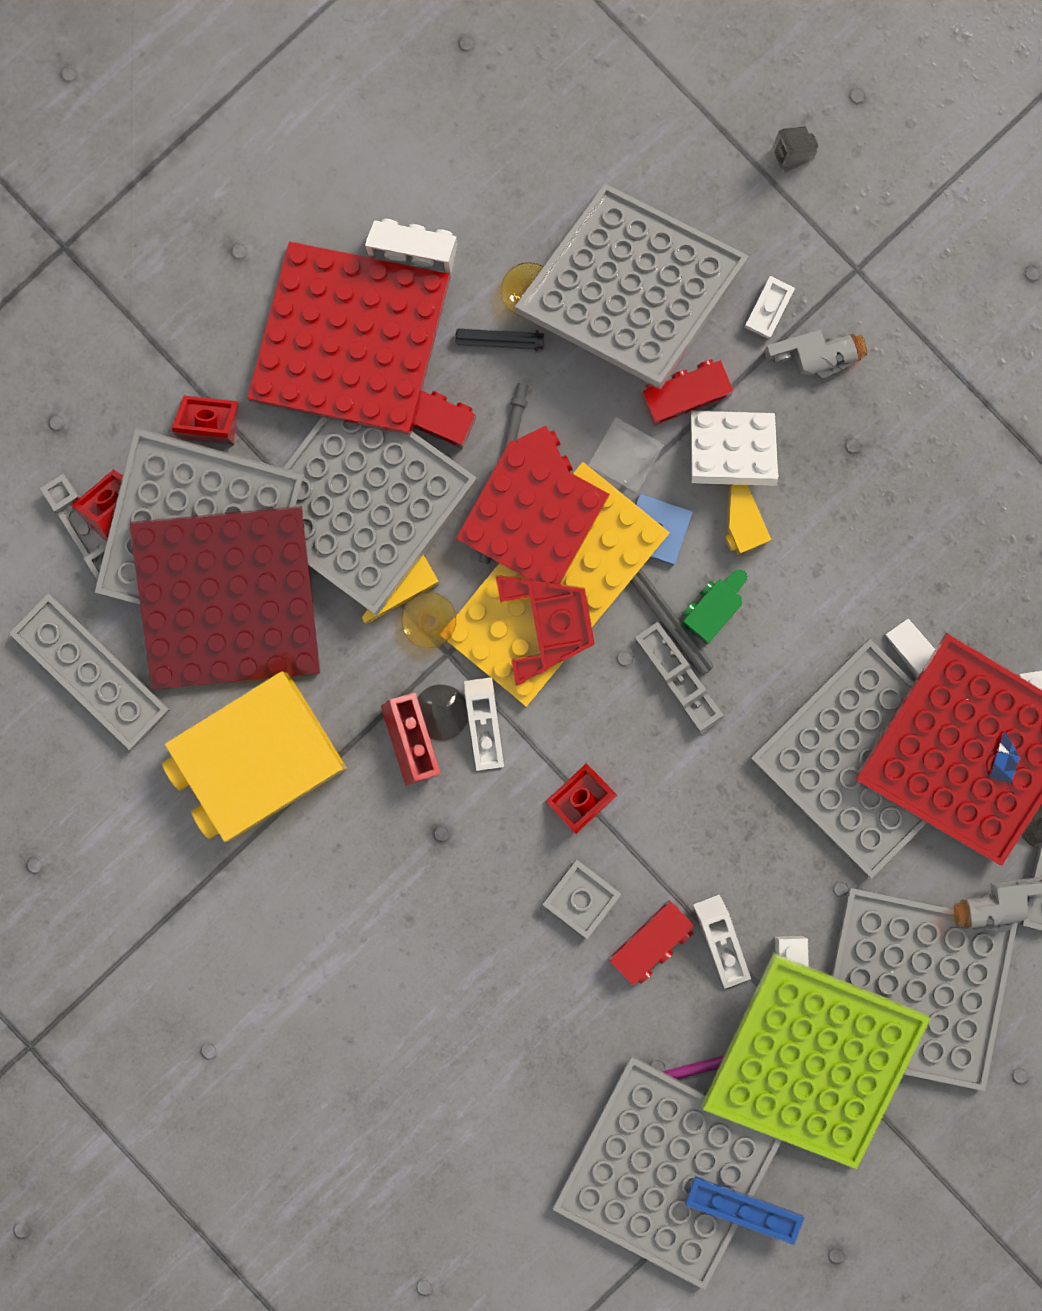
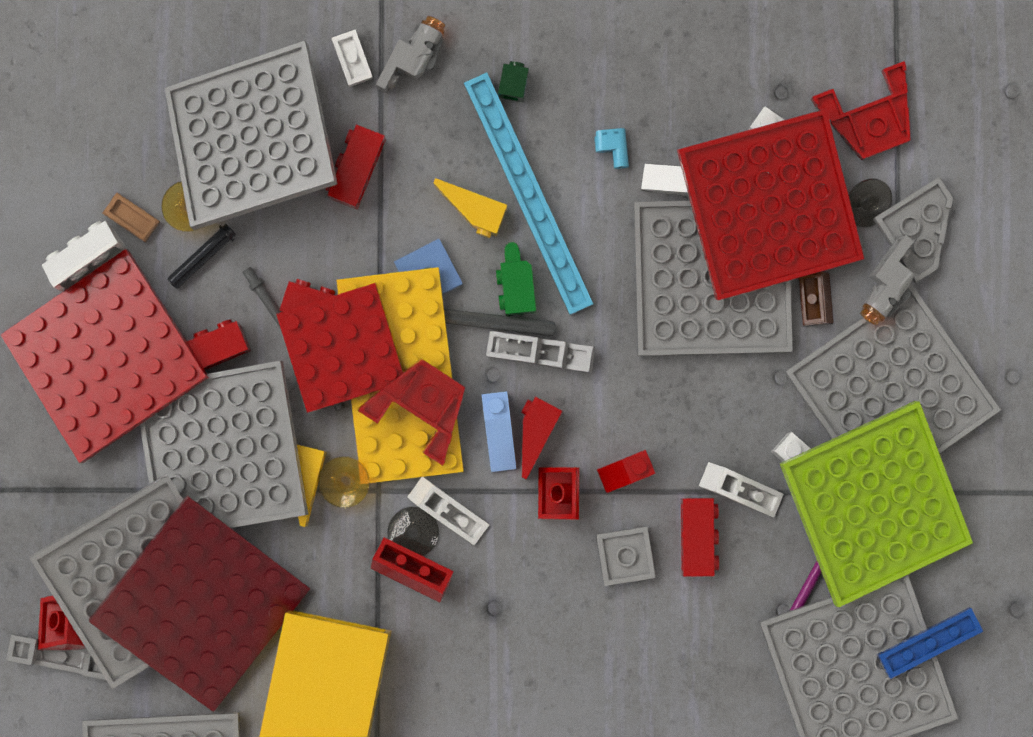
camera: 50 degrees left, 0 degrees up
(206, 420) = (67, 503): red slope -> none
(478, 255) = (131, 217): none -> medium nougat tile
(585, 704) = (499, 431): none -> light blue slope
(616, 732) = (537, 426): none -> red slope
(626, 455) = (359, 247): clear plate -> none
(649, 835) = (626, 471): none -> red slope
(733, 448) = (422, 171): white plate -> none
(795, 548) = (528, 193): none -> medium azure plate
(873, 452) = (513, 81): none -> dark green brick
(903, 579) = (613, 141): none -> medium azure piece
(931, 857) = (816, 299): none -> reddish brown slope
(1006, 761) = (798, 191): dark blue sticker -> none

